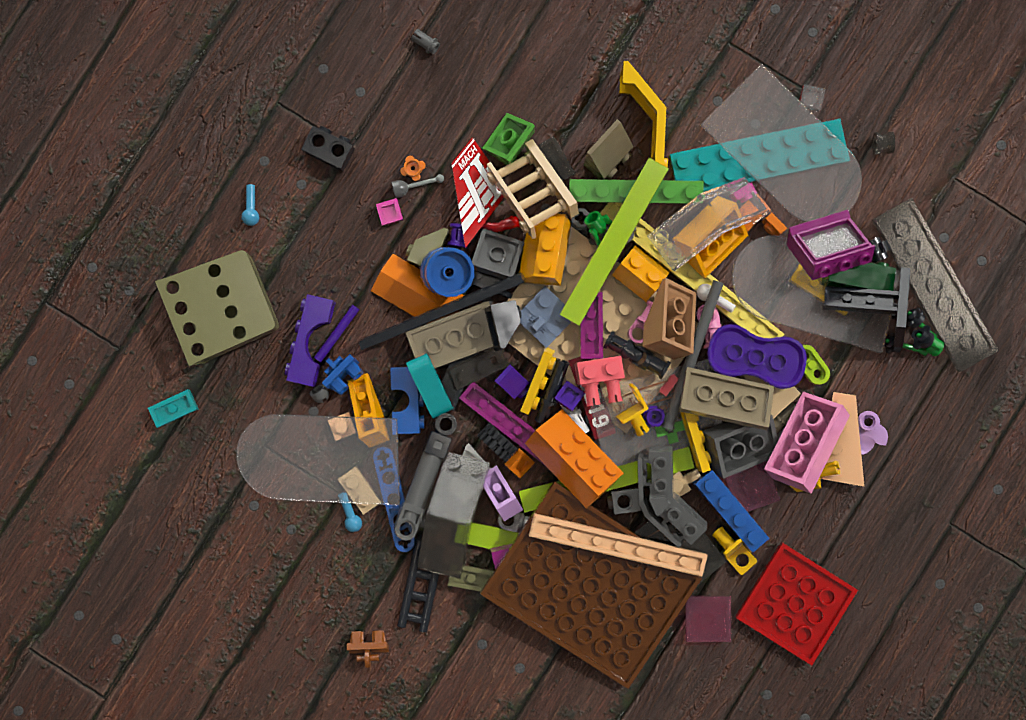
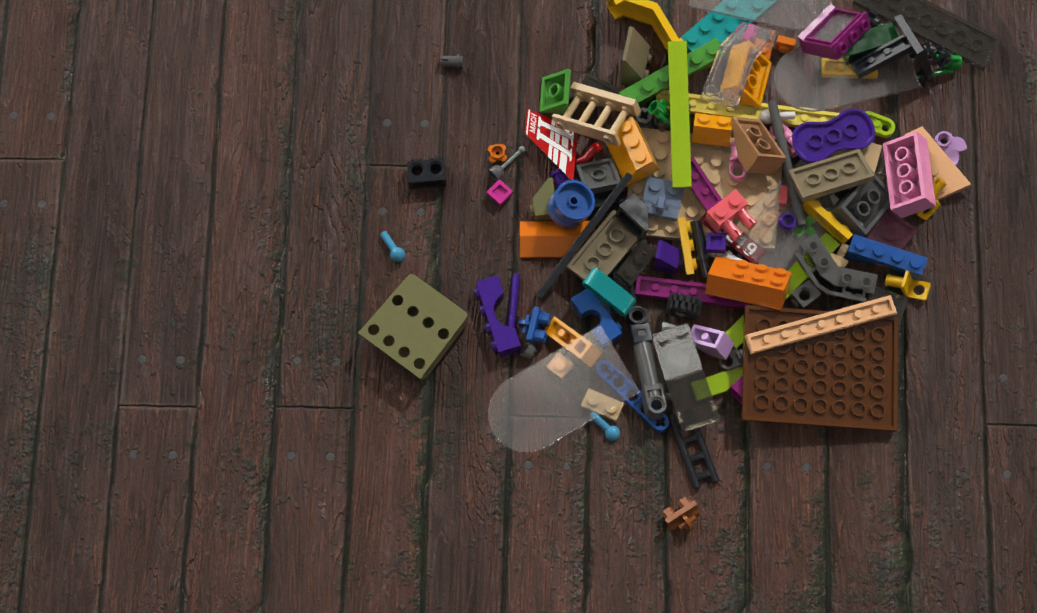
camera: 25 degrees left, 15 degrees down
(173, 408) = (423, 426): teal plate -> none
(471, 578) = (729, 419): olive plate -> none
(519, 463) = (709, 314): orange plate -> none
(629, 350) = (744, 185): black piece -> none
(634, 413) = (771, 226): yellow bracket -> none
(708, 619) = (922, 346): clear pink plate -> none
(796, 603) = (979, 297): red plate -> none

